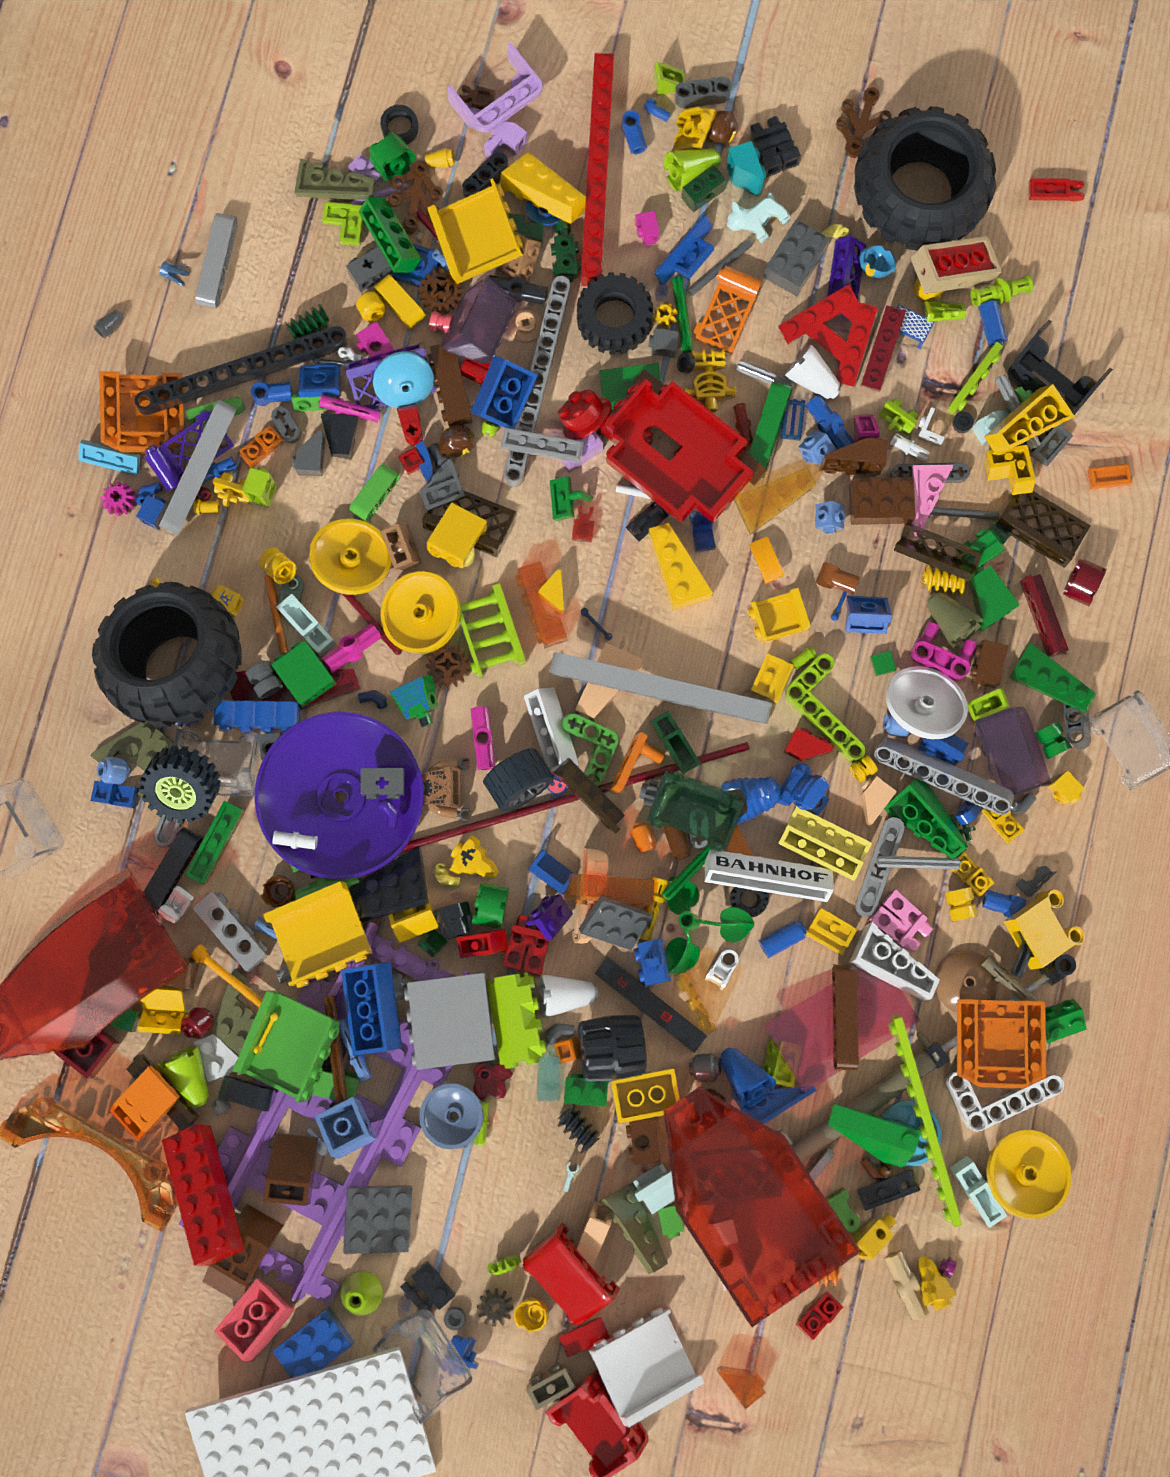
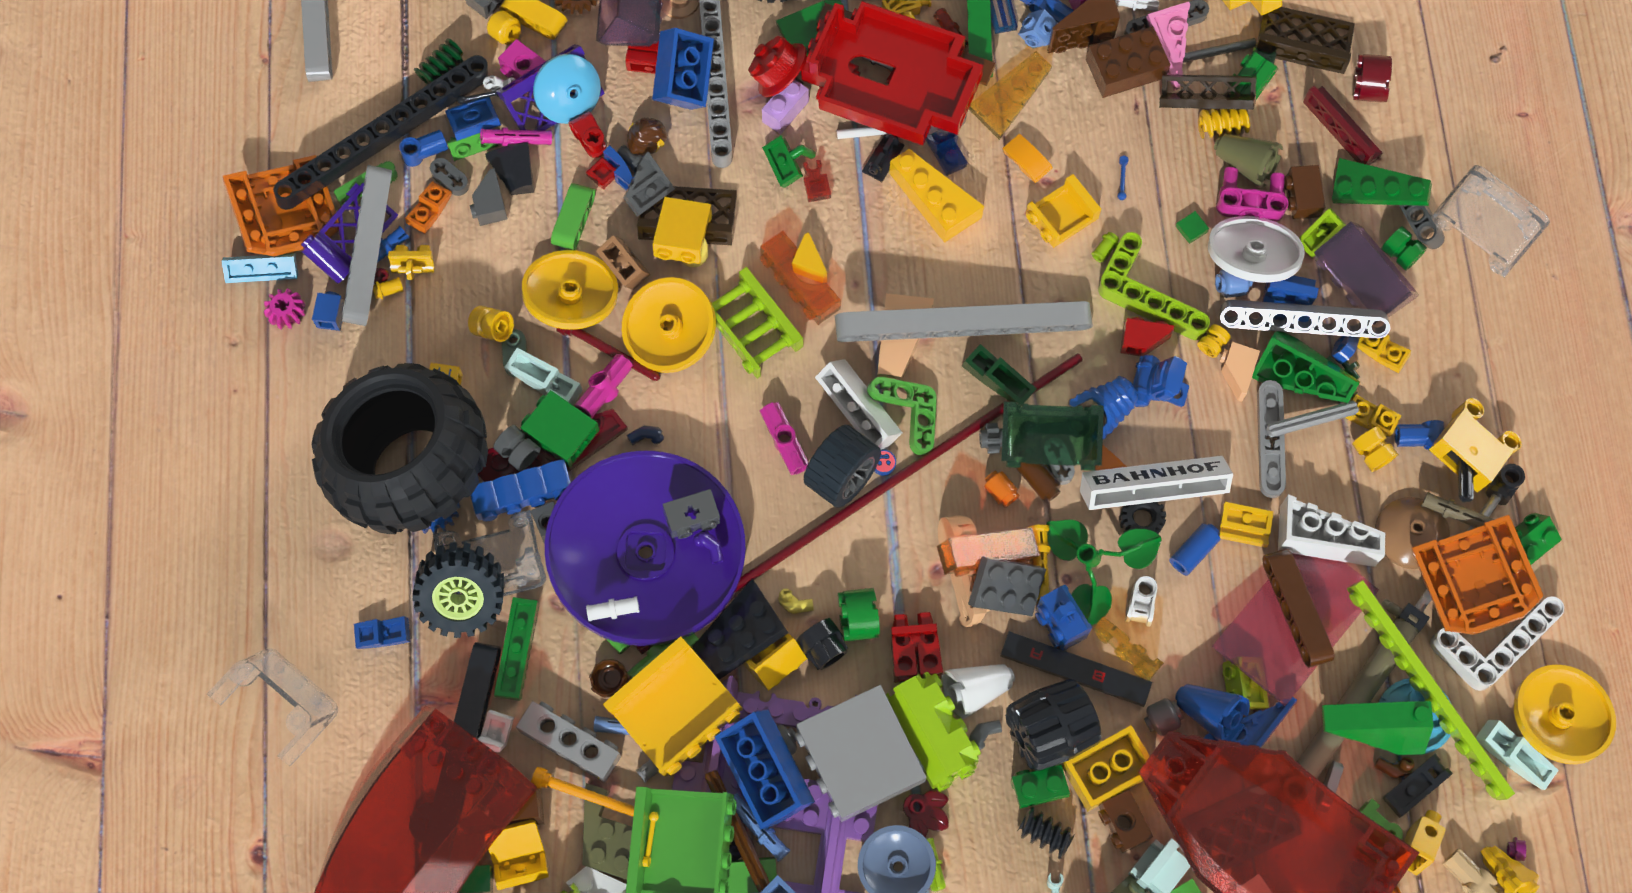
camera: 20 degrees left, 10 degrees down
(106, 325) = (214, 129): dark grey cone -> none
(113, 770) = (373, 604): medium blue head -> none
(137, 744) = (391, 569): olive wing -> none
(147, 490) = (311, 293): blue arm -> none
(166, 832) = (456, 653): light grey tile -> none
(167, 271) = (264, 55): flat silver piece -> none
(197, 1022) = (563, 857): dark red head -> none
(259, 487) = (443, 246): lime brick -> none
(276, 615) = (503, 377): orange bar -> none
(417, 699) = (697, 418): green torso -> none
(432, 943) = (806, 679): dark green plate -> none
(439, 322) = (586, 21): coral wheel -> none
(442, 788) = (760, 505): medium nougat torso -> none
(451, 386) = (620, 82): reddish brown brick -> none
(457, 666) = (727, 370): reddish brown gear -> none
(472, 859) = (818, 573): yellow rock -> none
(482, 943) = (864, 658): red brick -> none
(489, 427) = (674, 113): lime hinge -> none
(542, 445) = (743, 109): light grey tile -> none
(548, 1079) = (991, 790): clear light blue slope -> none
(550, 915) = (930, 603): dark purple bracket -> none
(551, 872) = (913, 560): blue panel -> none
(567, 1050) = (1001, 750): orange slope -> none
(584, 612) = (849, 273): dark blue hinge -> none
(589, 794) = (927, 459): dark brown fence -> none
(637, 747) = (958, 396): orange piece -> none
(686, 874) = (1065, 509): green axle -> none
(772, 678) = (1079, 277): yellow plate -> none
(825, 843) = (1203, 430): light yellow brick -> none
(830, 517) = (1078, 93): medium blue brick -> none
(832, 576) = (1103, 154): dark orange piece -> none
(867, 614) = (1157, 181): blue bracket -> none
(903, 924) = (1317, 485): bright pink hips -> none
(991, 597) = (1280, 123): green slope -> none
(1021, 807) = (1399, 327): dark grey arm -> none
(1028, 886) = (1438, 410): dark grey piece -> none
(1066, 788) = (1438, 294): yellow brick -> none

